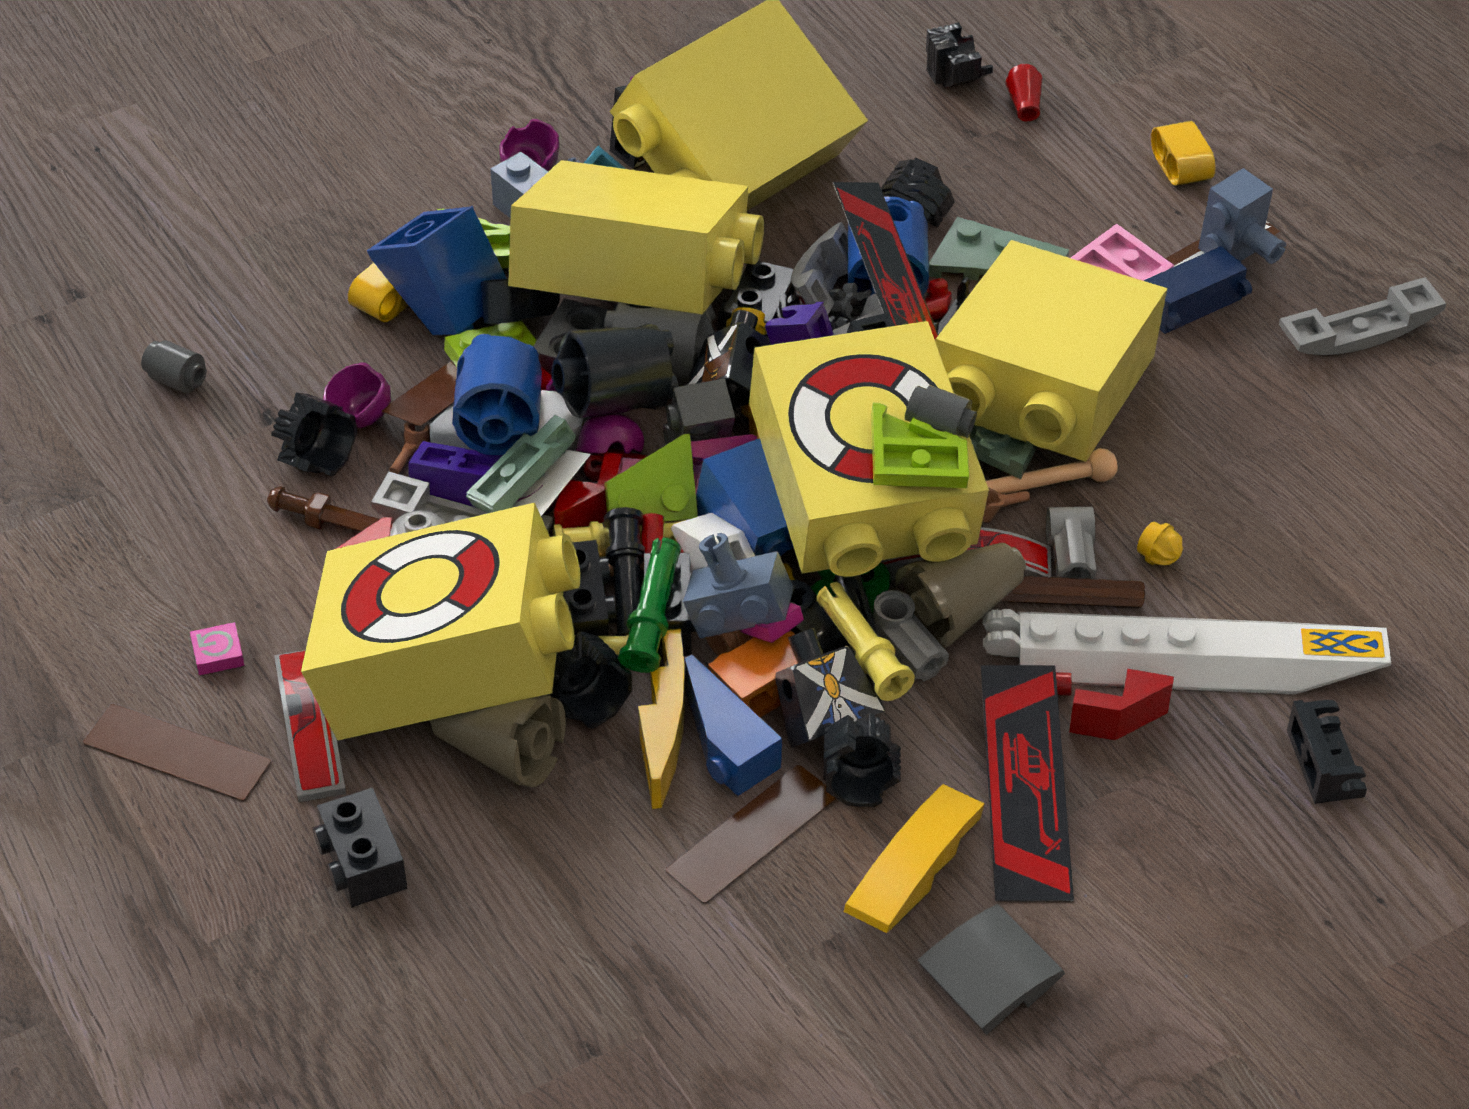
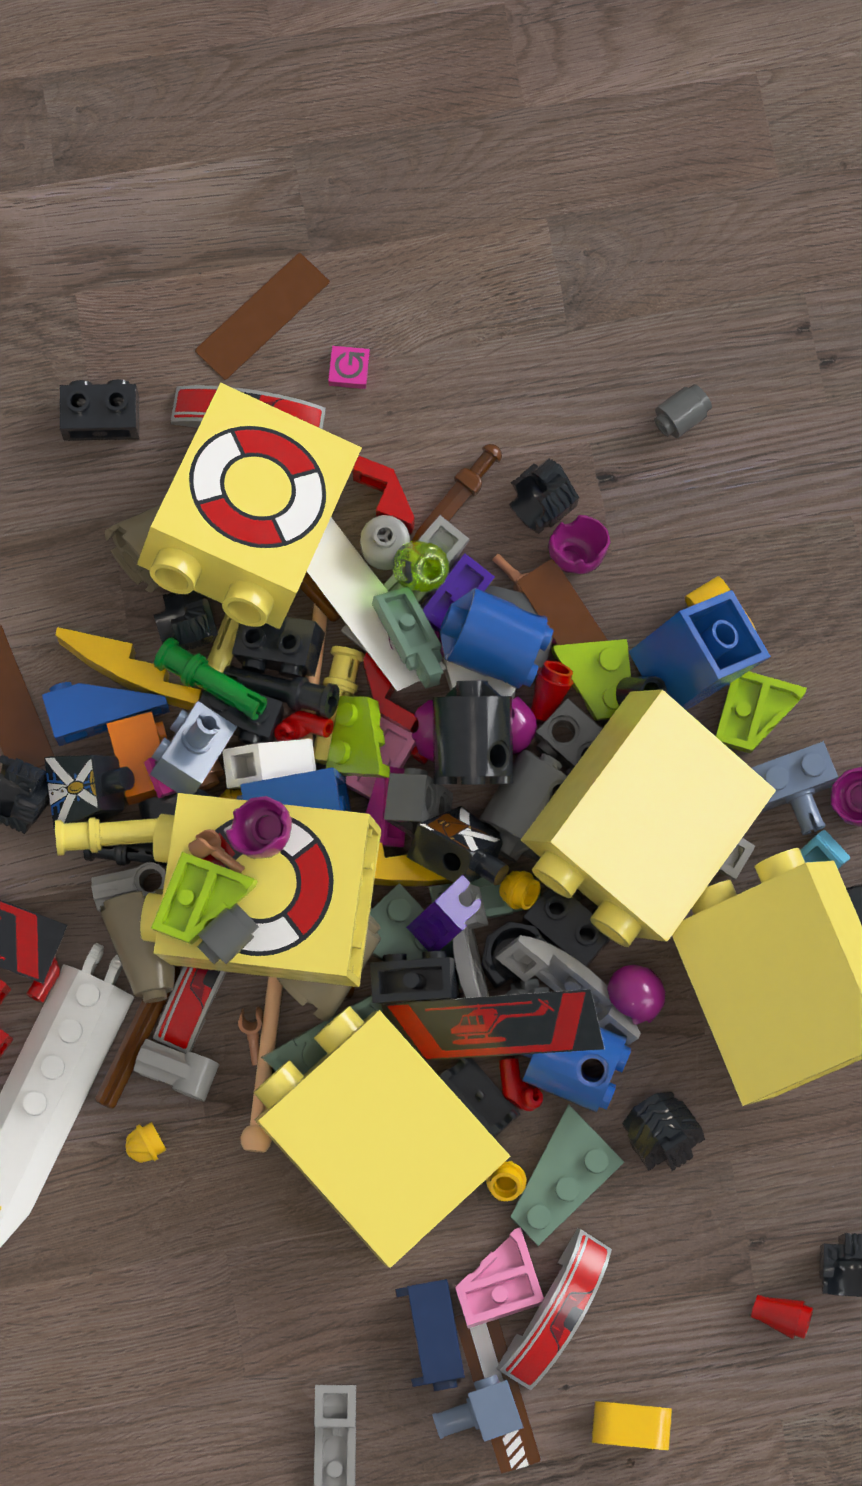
camera: 110 degrees right, 30 degrees up
(440, 486) = (420, 566): none -> clear neon green head
(797, 234) = (637, 993): none -> magenta hair
(818, 411) = (260, 828): none -> magenta hair
(855, 461) = (209, 843): none -> nougat hand
(1170, 226) = (560, 1312): none -> slope

